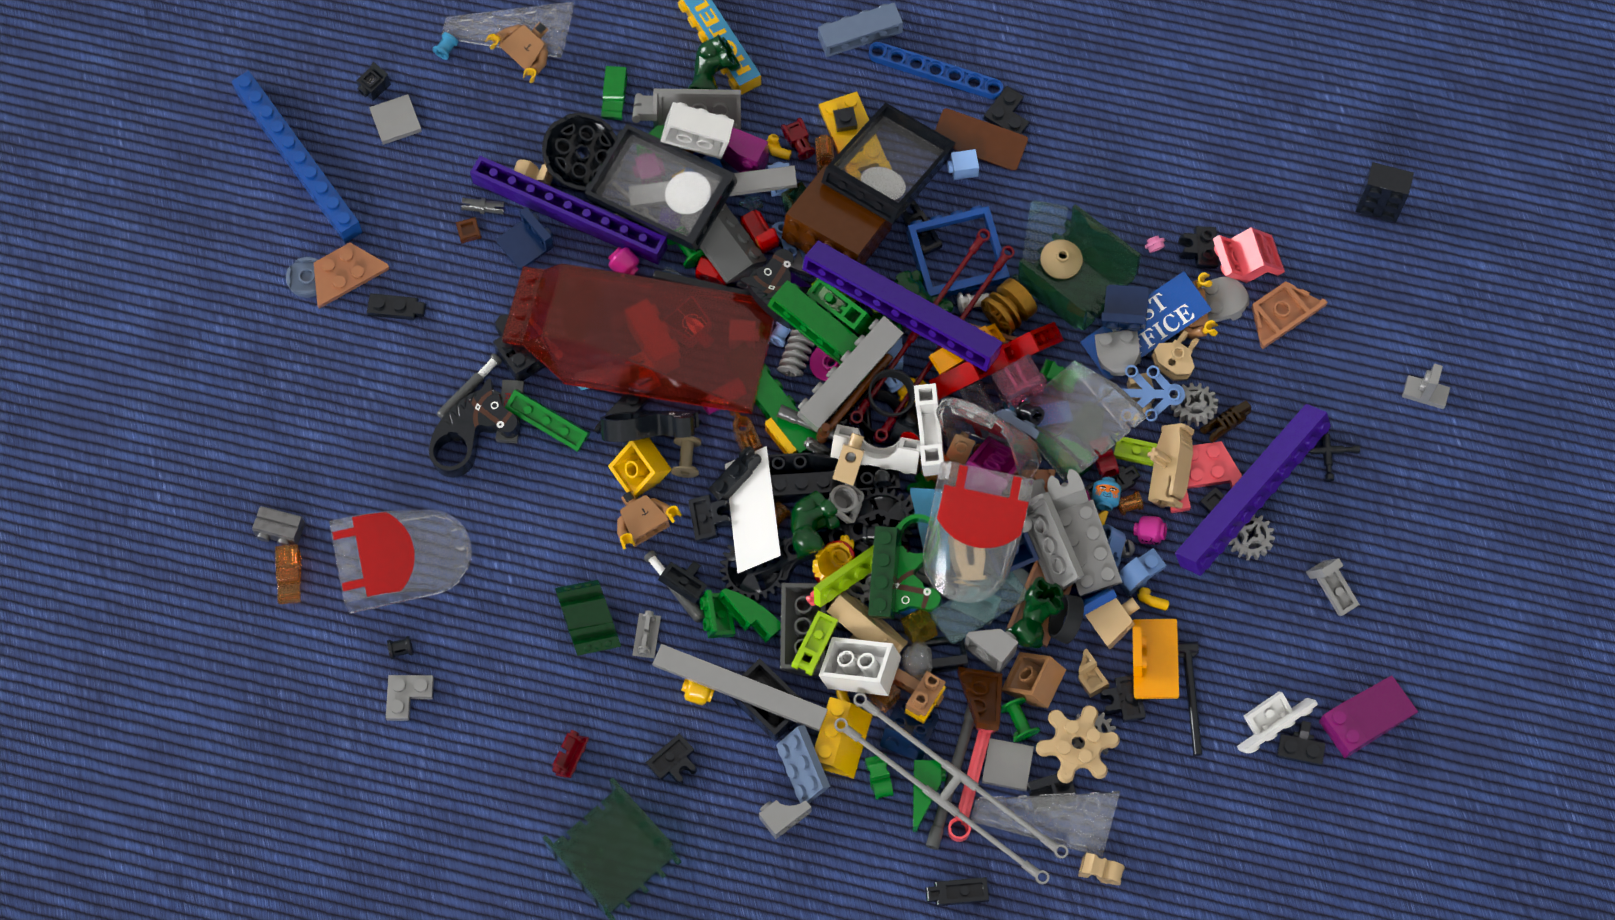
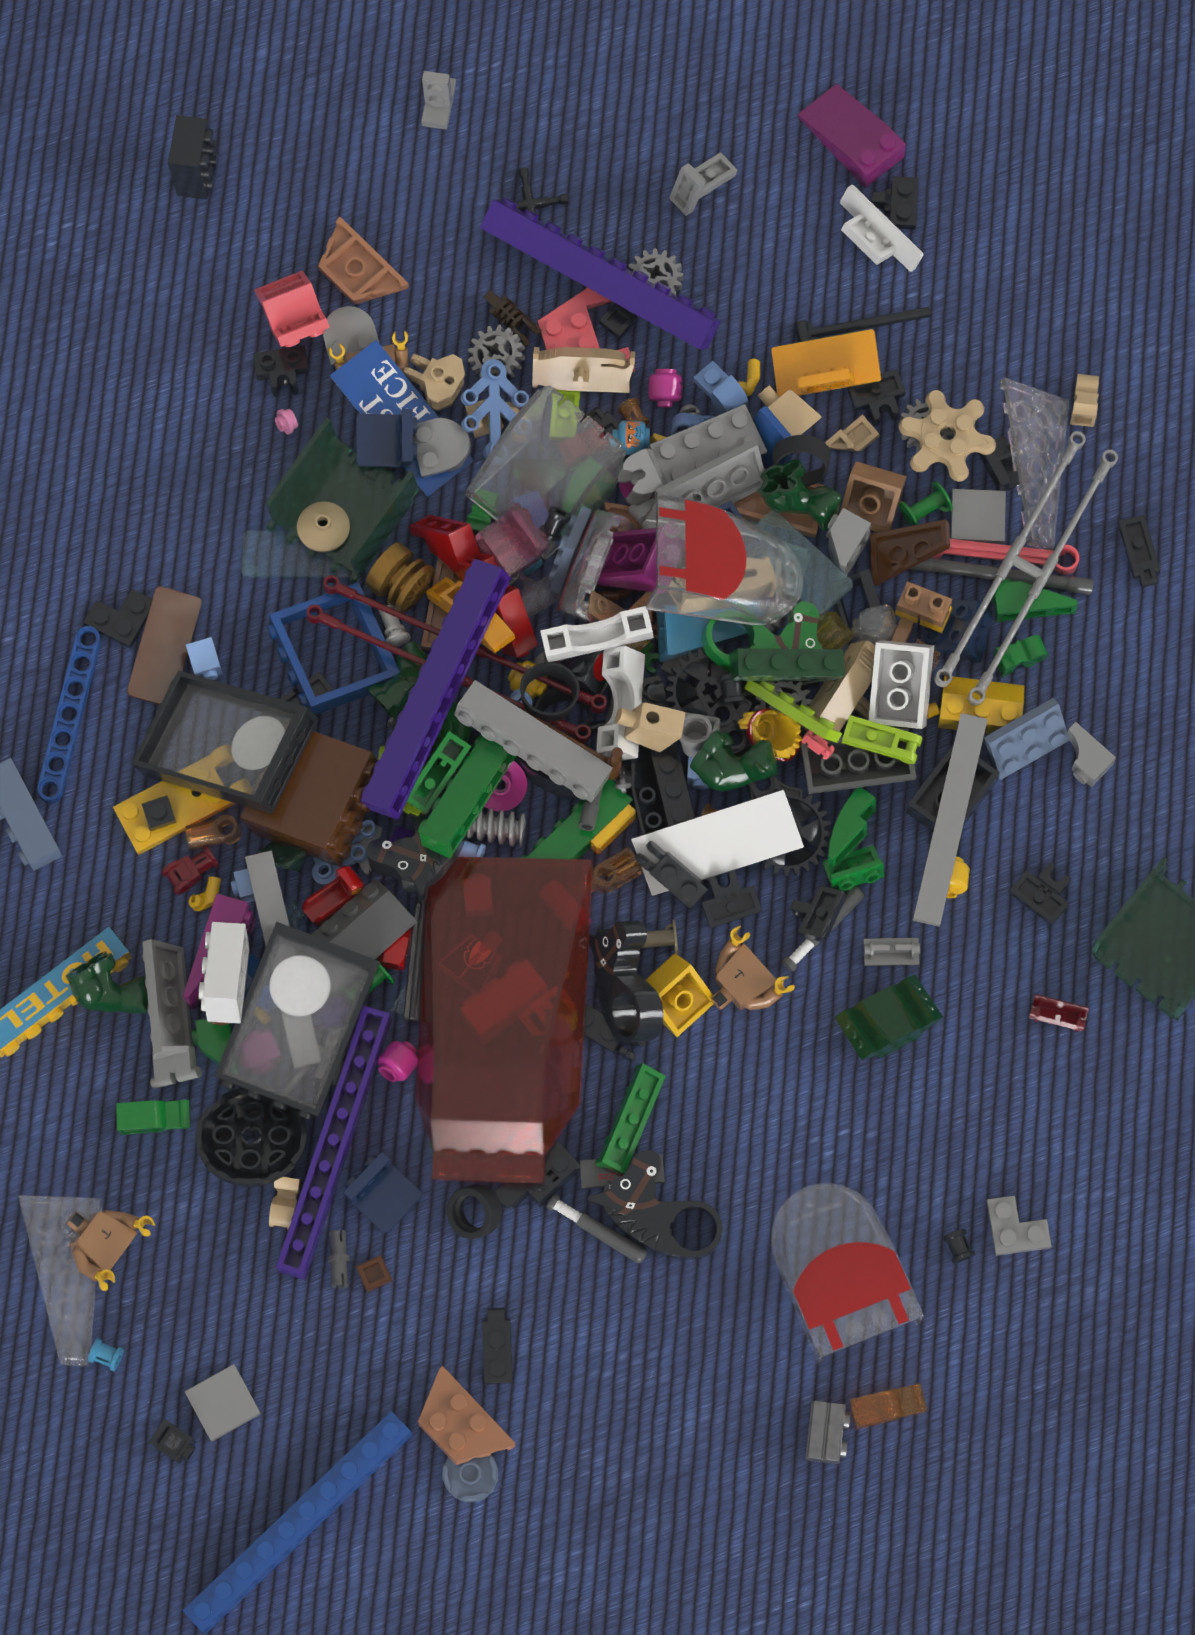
camera: 95 degrees left, 5 degrees up
(495, 298) = (456, 1214): none -> black tyre

